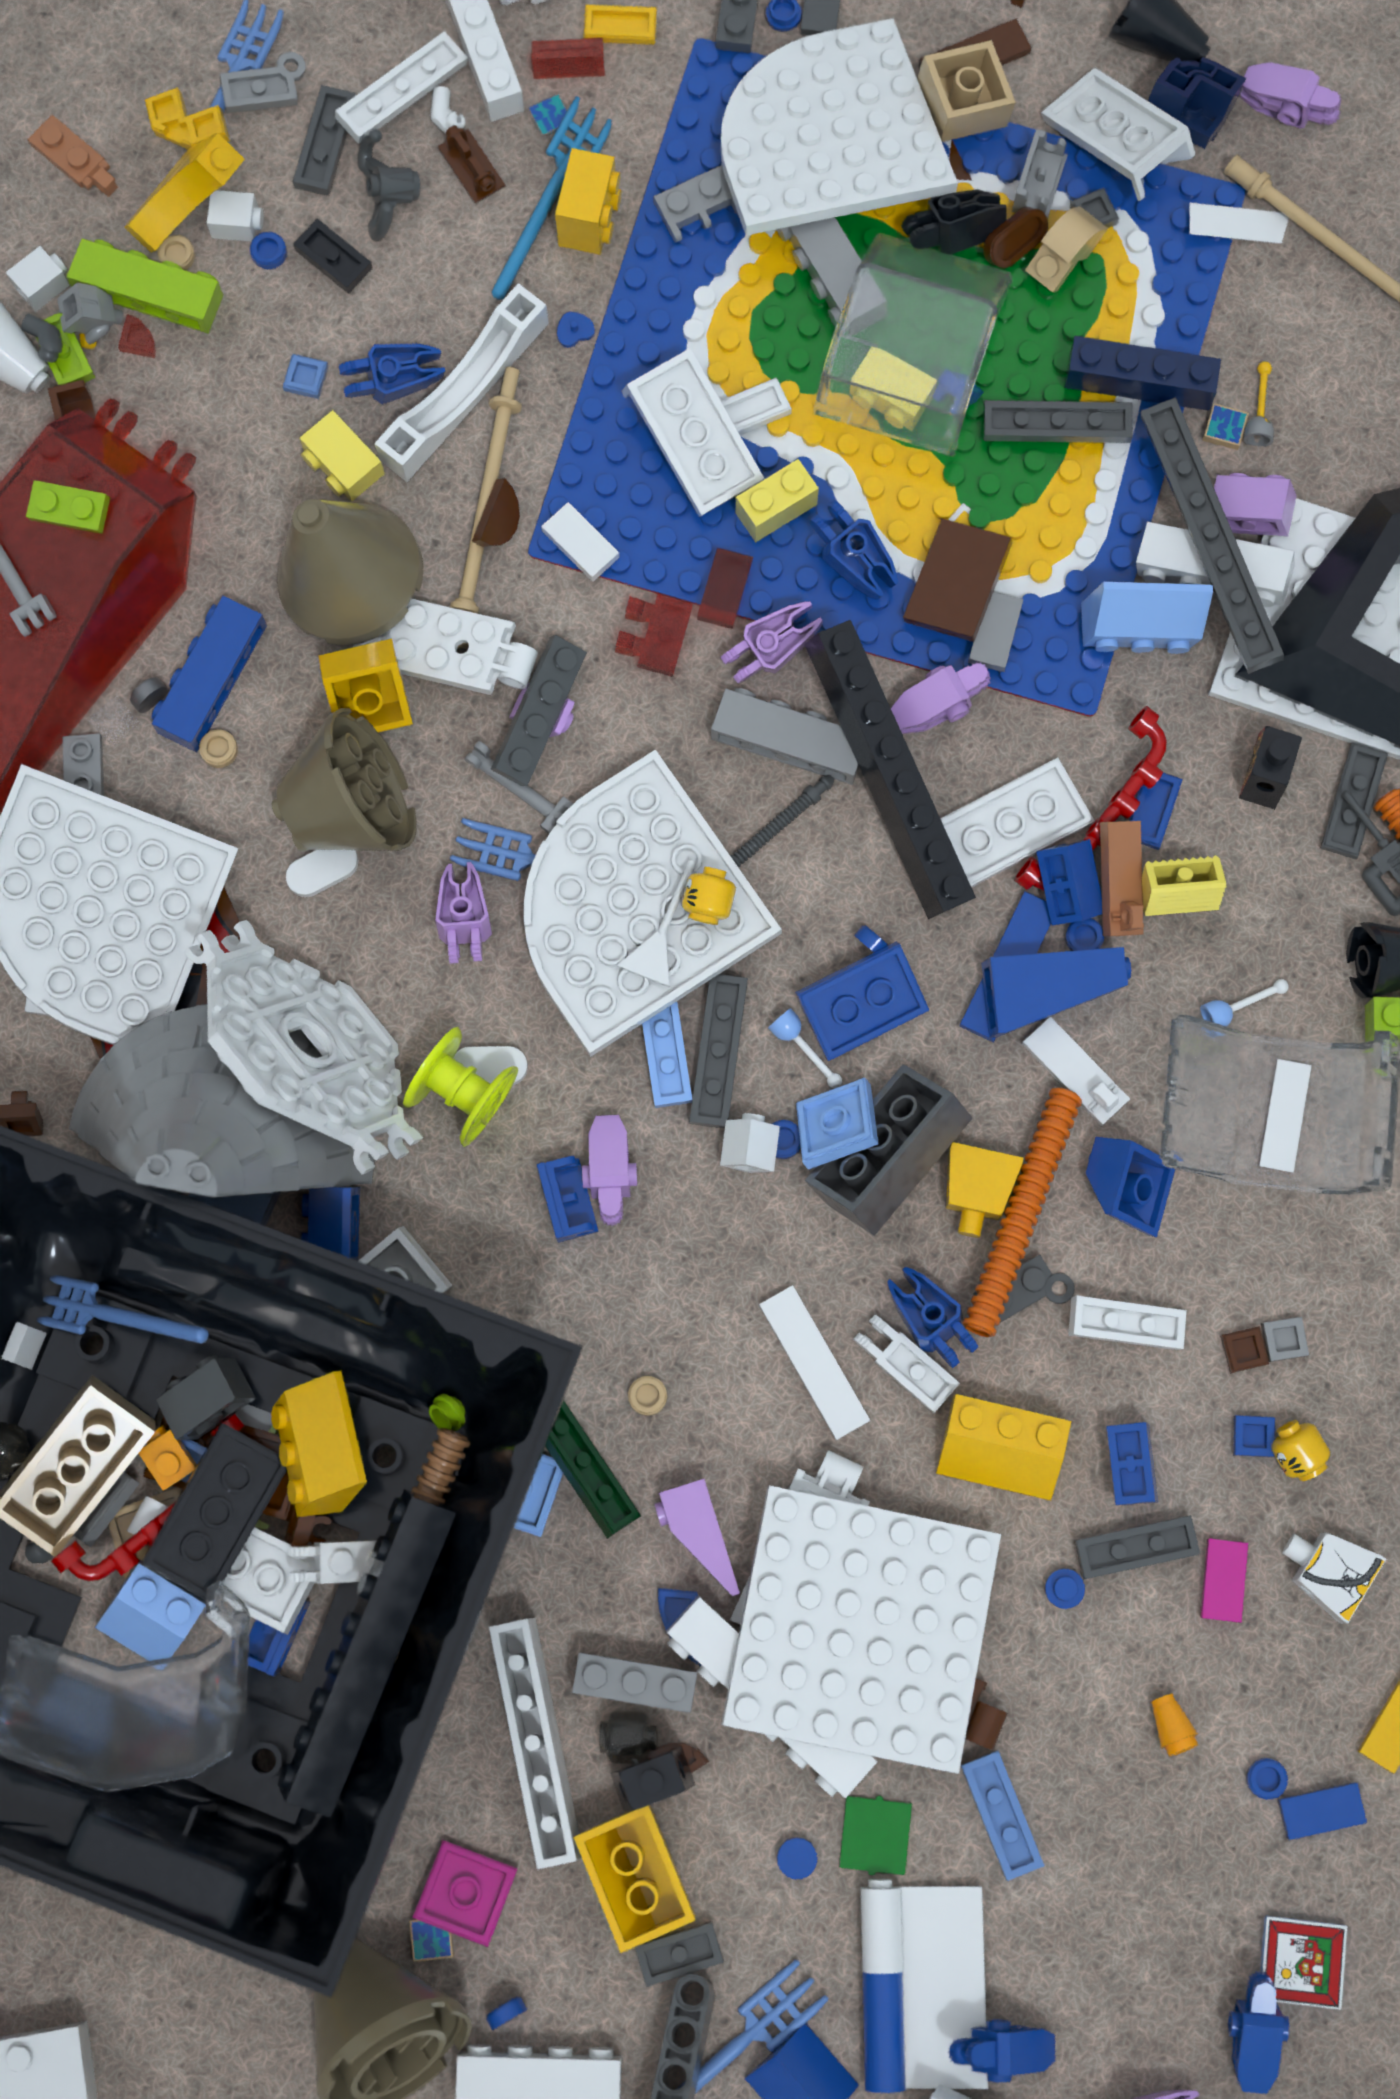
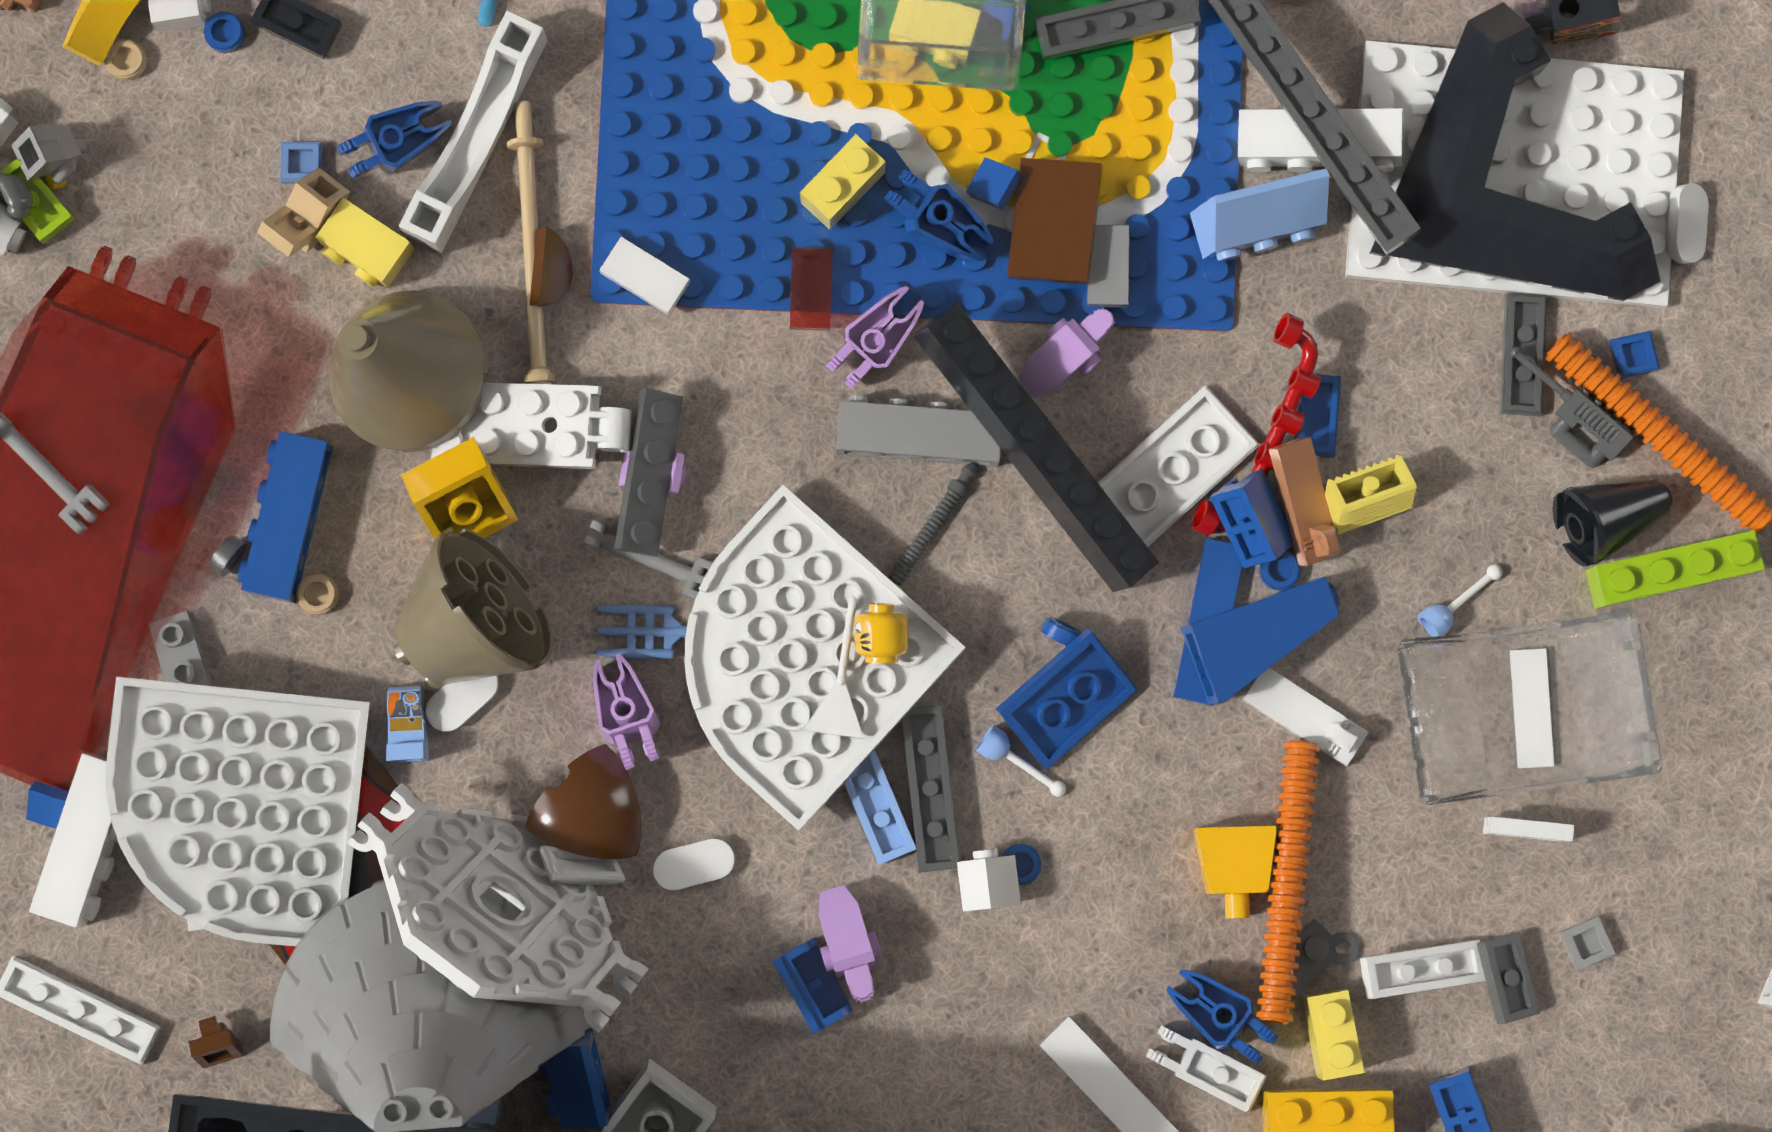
camera: 20 degrees left, 5 degrees up
(68, 507) = (90, 384): lime plate -> none
(71, 396) = (57, 254): reddish brown panel -> none
(136, 338) = (108, 164): clear red tile -> none
(148, 285) = (103, 104): lime brick -> none
(266, 880) = (406, 725): none -> light blue leg
(295, 416) = (304, 213): none -> tan brick
(387, 1038) = (578, 869): none -> white tile
(409, 990) = (591, 810): none -> reddish brown brick
(460, 1086) = (671, 900): neon yellow piece -> none
(574, 328) = (576, 39): blue piece -> none
(664, 635) = (759, 355): clear red plate -> none
(694, 432) = (737, 130): white plate -> none
(757, 406) = (788, 86): white tile -> none
(836, 1123) = (1074, 838): light blue tile -> none
(911, 534) = (993, 183): none -> blue tile
(913, 1131) = (1135, 852): flat silver brick -> none
(1029, 1359) = (1332, 1034): none -> light yellow brick
(1130, 1183) = (1389, 823): blue slope -> none
(1204, 1351) = (1508, 978): none -> dark grey plate
(1244, 1349) = (1549, 964): reddish brown tile -> none
(1253, 1436) = (1579, 1052): blue tile -> none
(1255, 1221) = (1528, 829): none -> white tile
(1256, 503) = (1347, 61): lavender brick -> none
(1272, 764) = (1430, 341): black torso -> none
(1300, 1450) = (1631, 1056): yellow head -> none

